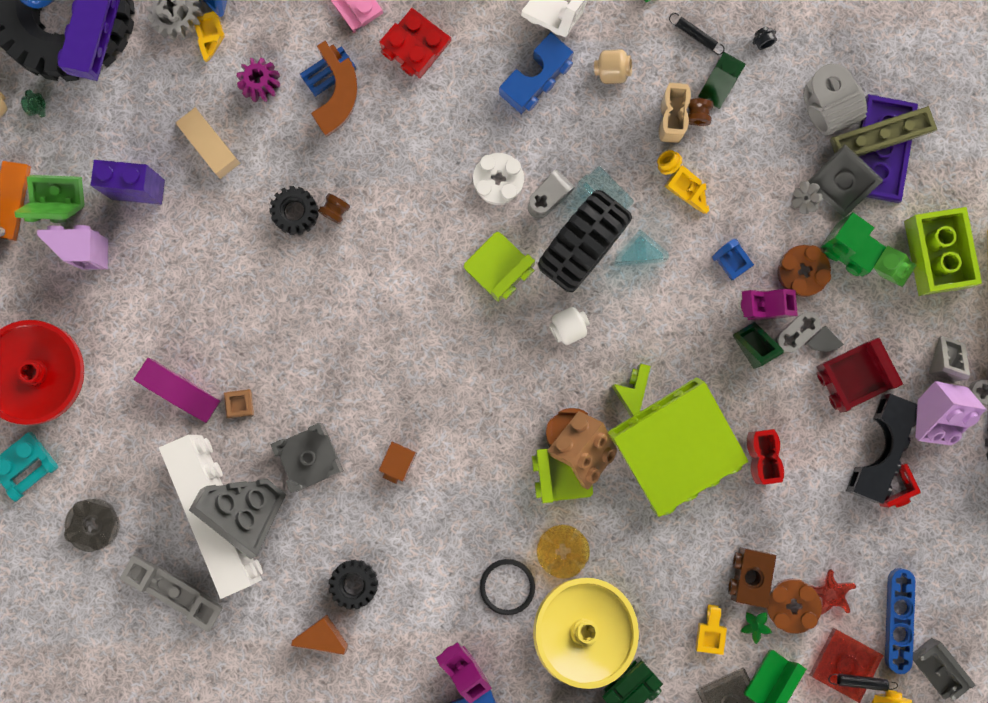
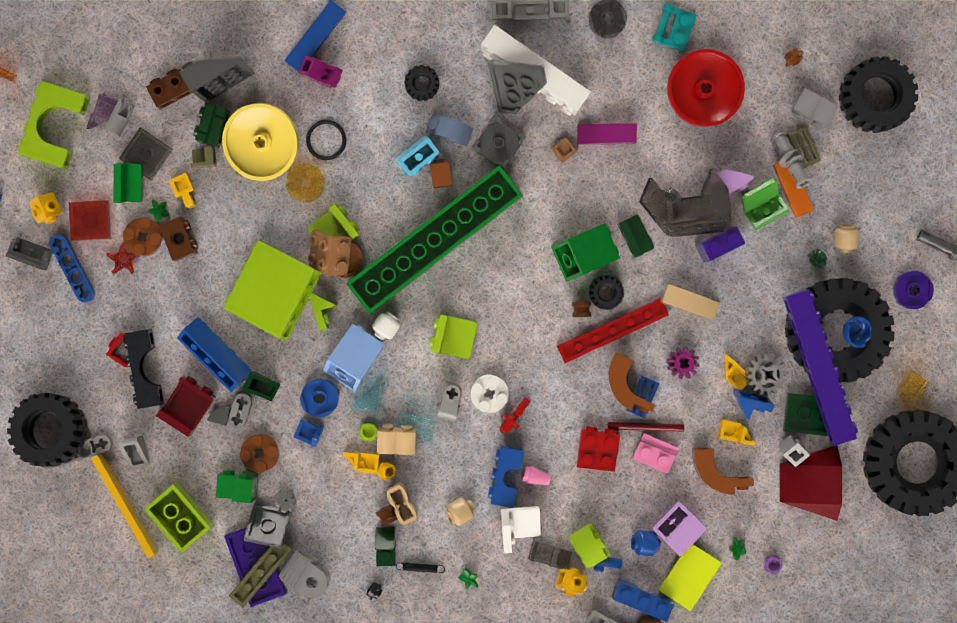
camera: 145 degrees right, 5 degrees up
(135, 235) = (692, 214): none -> clear smoke windscreen
(221, 254) = (635, 236): none -> dark green panel
(288, 268) = (585, 252): none -> green slope
(315, 164) = (612, 330): none -> red tile
(322, 637) = (421, 39): dark orange slope -> none
(346, 36) = (645, 426): none -> dark red bar
(354, 508) = (449, 129): none -> sand blue brick
(411, 500) = (417, 156): none -> medium azure brick
(451, 389) = (434, 240): none -> green brick
(497, 130) = (510, 422): none -> red arm
(504, 55) = (532, 475): none -> bright pink cone
(584, 240) = (406, 381): black tyre -> none
(628, 312) = (353, 357): none -> light blue slope
(637, 188) = (396, 440): none -> tan brick
(662, 219) = (368, 431): none -> lime tile
(664, 655) = (204, 158): none -> olive panel
(708, 282) = (314, 407): none -> blue plate
(765, 464) = (212, 314): red brick -> none
(769, 304) = (269, 416): magenta brick -> none
(790, 414) = (214, 354): none -> blue brick
(862, 682) = (74, 215): black piece -> none
(894, 266) = (204, 489): bright green brick -> none
(946, 413) = (118, 414): lavender slope -> none

